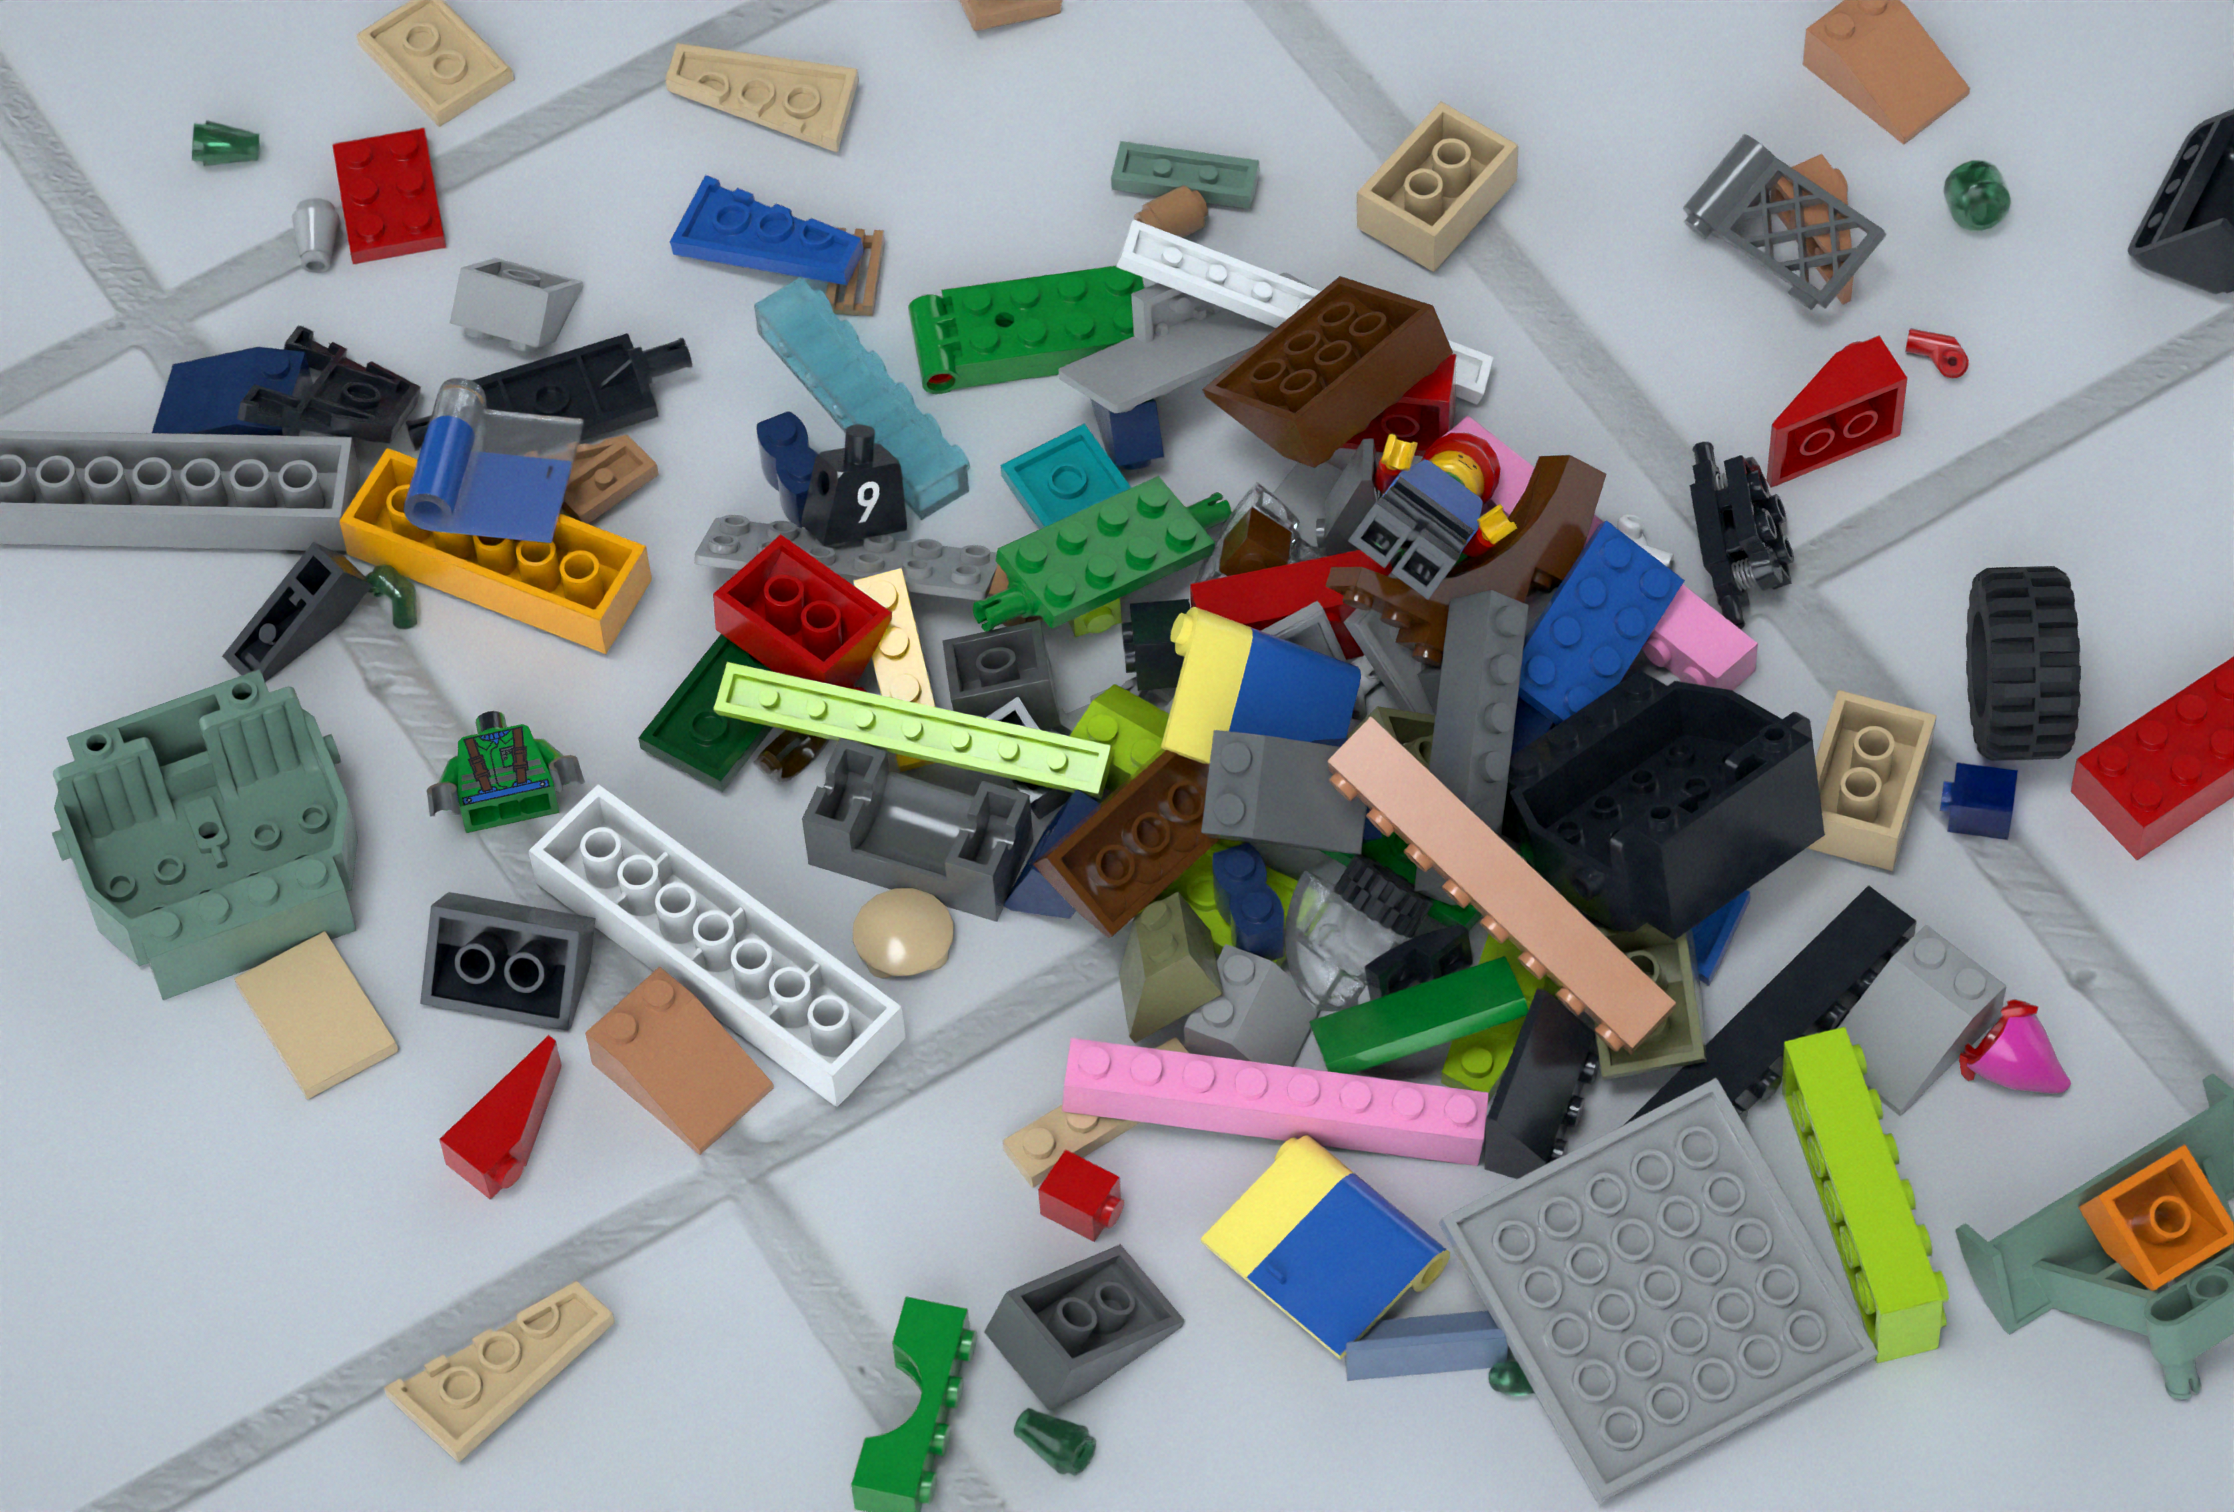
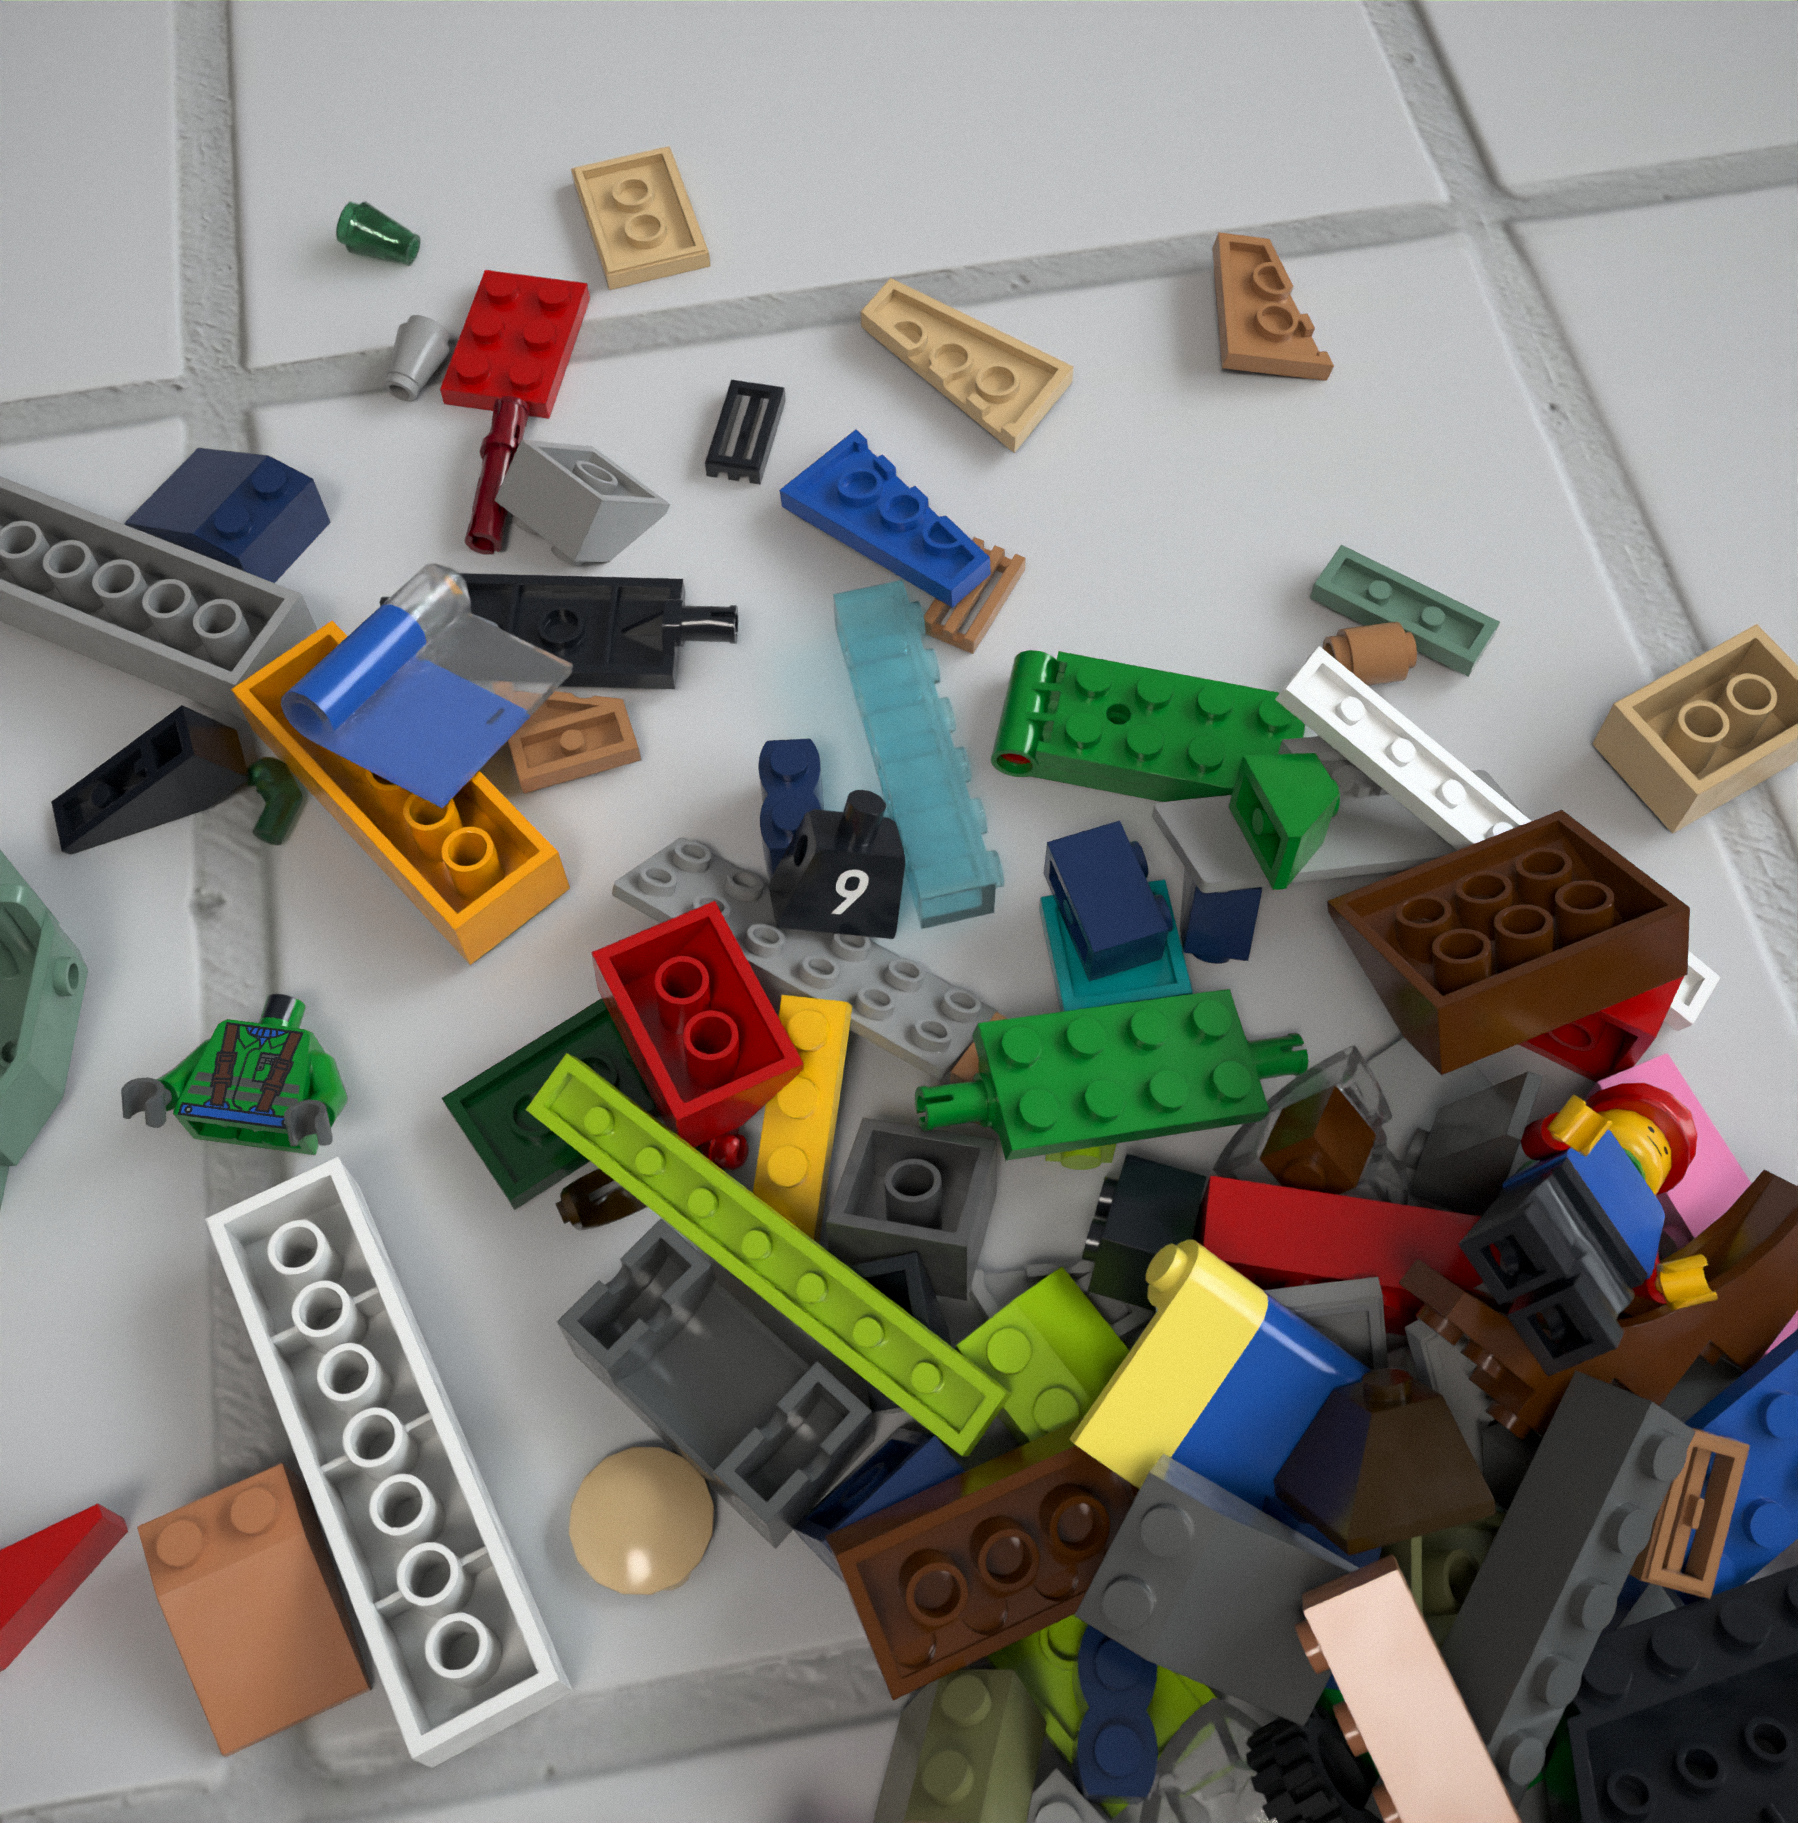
camera: 20 degrees right, 5 degrees up
(343, 400) = (336, 554): black wing -> none
(432, 289) = (497, 451): none -> dark red pin
(506, 960) = (128, 1349): black slope -> none
(619, 233) = (738, 464): none -> black tile
(1049, 447) = (1107, 900): none -> dark blue brick
(1150, 341) = (1283, 810): none -> green slope
(1351, 688) = (1383, 1466): none -> dark brown slope
(1567, 665) = (1685, 1509): none -> medium nougat tile

